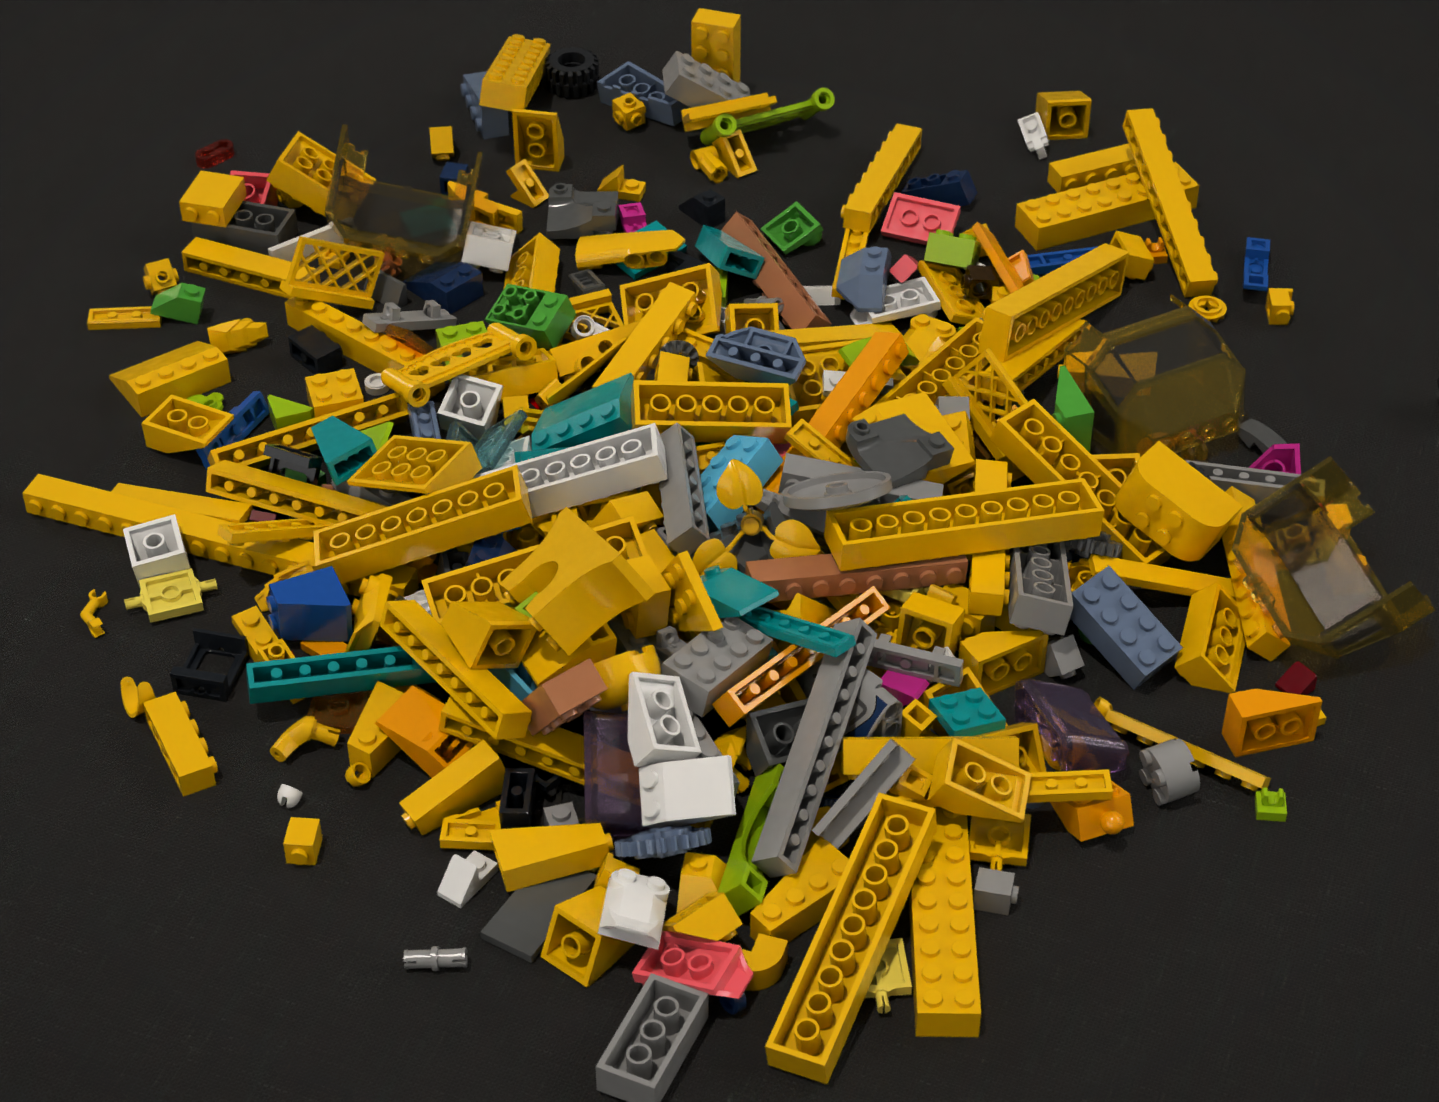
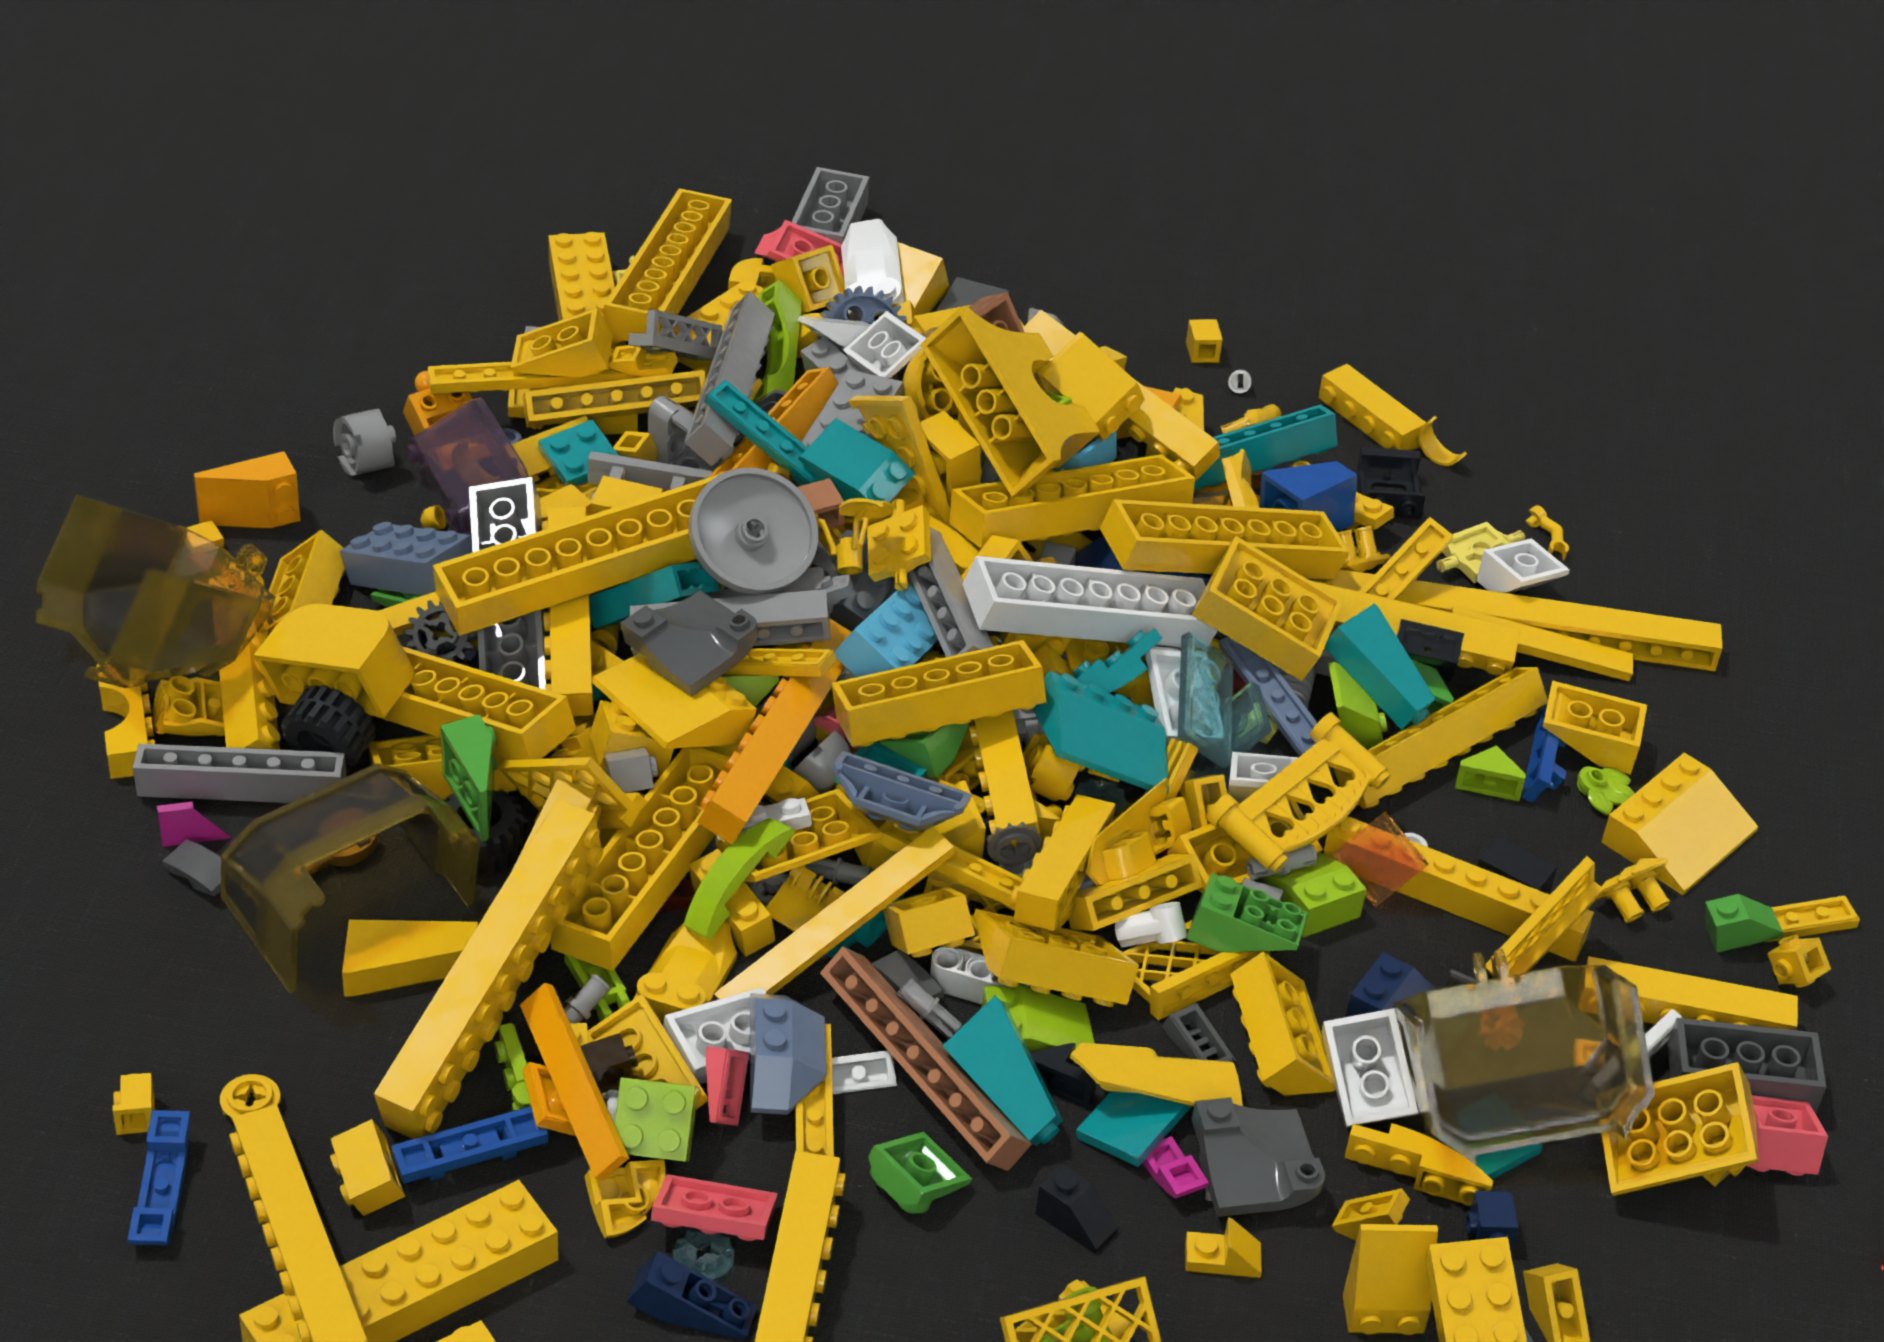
camera: 165 degrees right, 0 degrees up
(212, 198) = (1805, 1048): yellow brick -> none
(333, 391) = (1445, 800): yellow brick -> none
(429, 318) = (1412, 911): light grey hinge -> none
(435, 958) = (1039, 270): light grey pin -> none
(709, 514) = (899, 544): none -> yellow plate
(1157, 251) = (332, 1210): light orange tile -> none
(1202, 757) = (353, 484): yellow plate -> none
(1270, 805) = (257, 445): lime tile -> none

